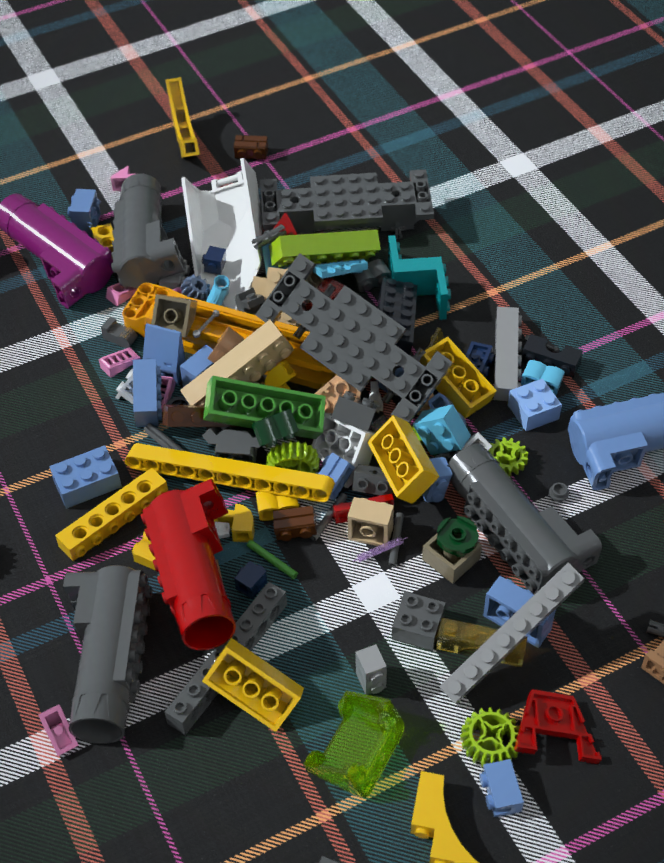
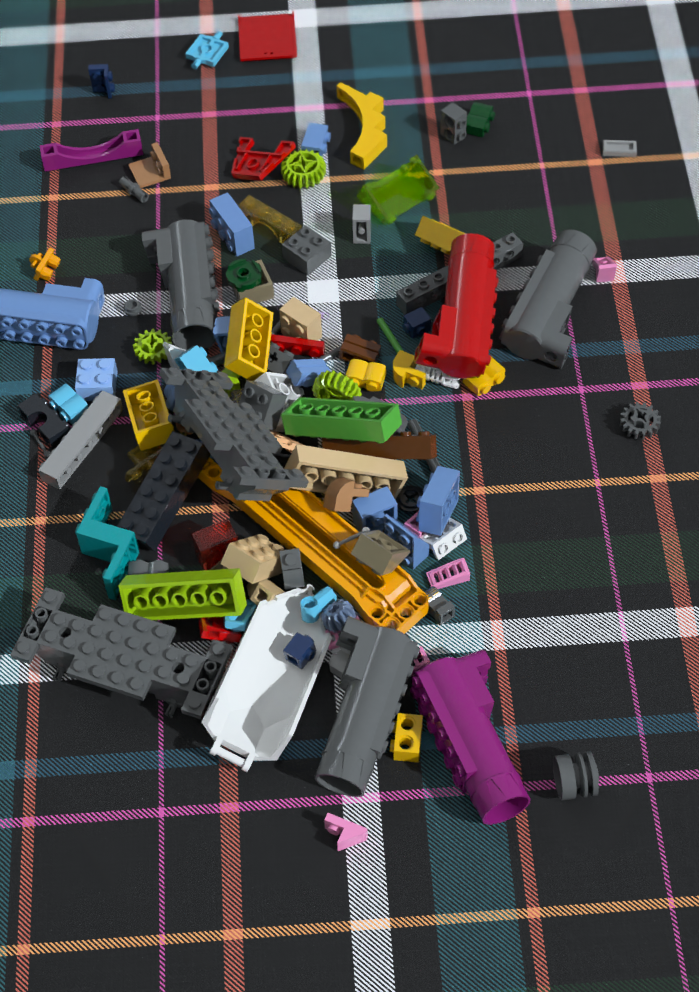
camera: 155 degrees left, 5 degrees up
(85, 210) = (418, 780): medium blue brick -> none
(85, 476) = (522, 455): medium blue brick -> none
(111, 514) = (509, 415): yellow brick -> none
(180, 117) = (241, 884): yellow arch -> none
(231, 472) = (415, 413): yellow beam -> none
(251, 147) = (171, 826): reddish brown brick -> none
(269, 236) = (236, 613): dark grey pin -> none
(275, 427) = (348, 389): dark green brick -> none
(340, 268) = (187, 560): medium azure wing -> none
(481, 356) = (113, 437): dark blue bracket -> none
(511, 633) = (252, 191): light grey brick -> none

